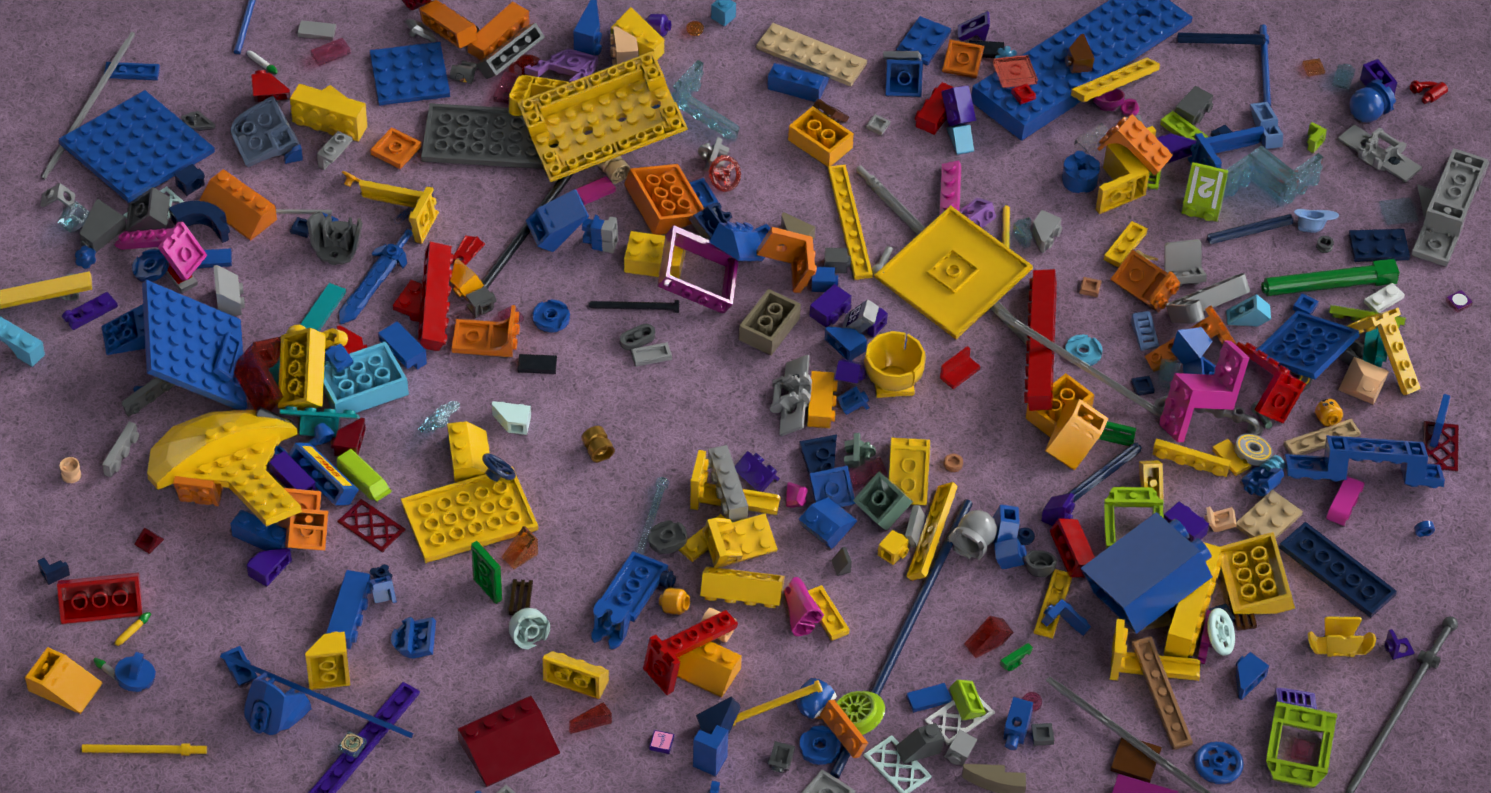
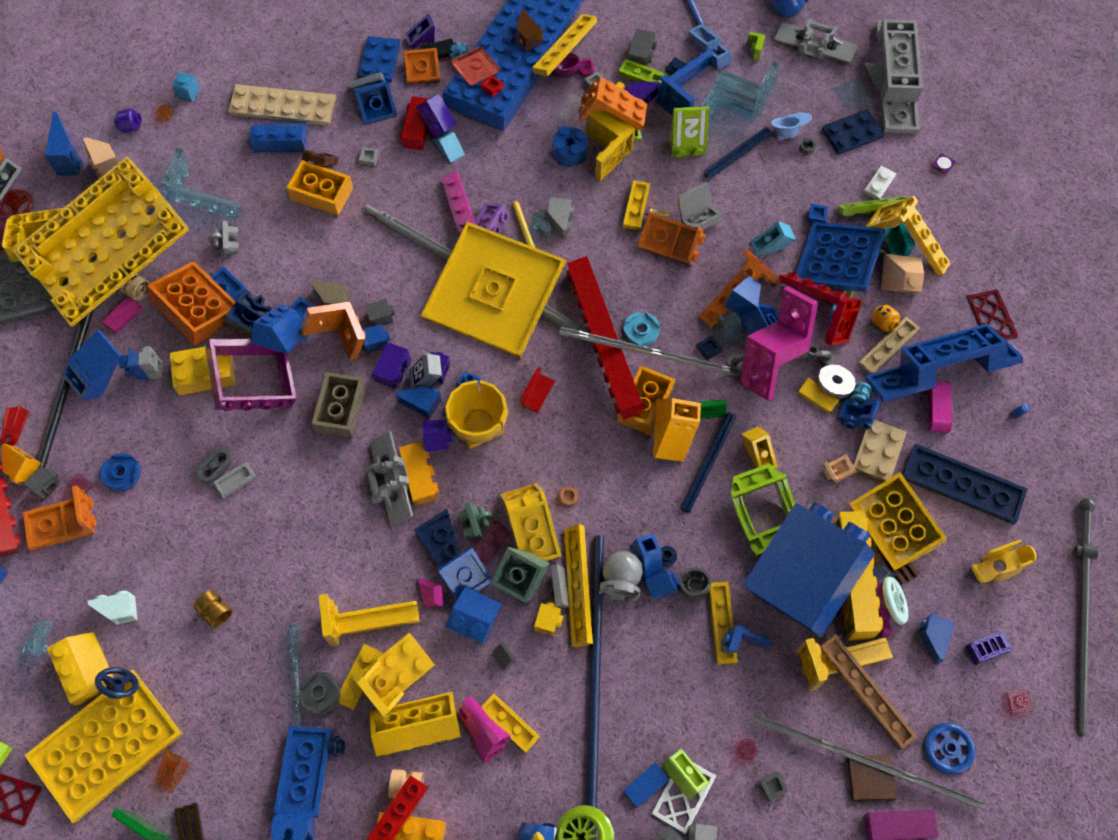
camera: 20 degrees left, 15 degrees up
(537, 364) = (122, 532): black tile -> none
(566, 62) = (54, 187): medium lavender wing -> none
(636, 305) = (240, 417): black bar -> none
(646, 36) = (122, 140): yellow wedge -> none
(674, 601) = (352, 771): light orange head -> none
(716, 174) = (234, 257): clear red piece -> none
(727, 484) = (360, 612): light grey brick -> none
(755, 472) = (383, 579): dark purple bracket -> none
(850, 222) = (378, 267): yellow tile -> none
(853, 400) = (449, 462): blue bracket -> none
(885, 256) = (423, 298): light grey bar -> none
(988, 636) = (678, 690): clear red slope -> none
(1013, 661) = (715, 704): green tile -> none
(1019, 711) = (744, 780): blue torso -> none
(1058, 507) = (690, 518): dark purple slope -> none
(1072, 545) = (719, 554): red brick -> none
(1090, 287) = (622, 259): nougat tile -> none
(1144, 319) = (689, 280): medium blue slope -> none
(1191, 307) = (722, 252): light grey beam -> none
(1191, 457) = (779, 411): yellow plate -> none
(1195, 525) = (810, 486): dark purple brick -> none
(1265, 420) = (820, 334): sand green bar -> none
(1306, 719) = (1014, 670): lime wedge -> none
(1379, 273) = (866, 161): green brick -> none
(1392, 645) = (1051, 550): dark purple bracket -> none
(1440, 420) = (989, 294): blue tile -> none

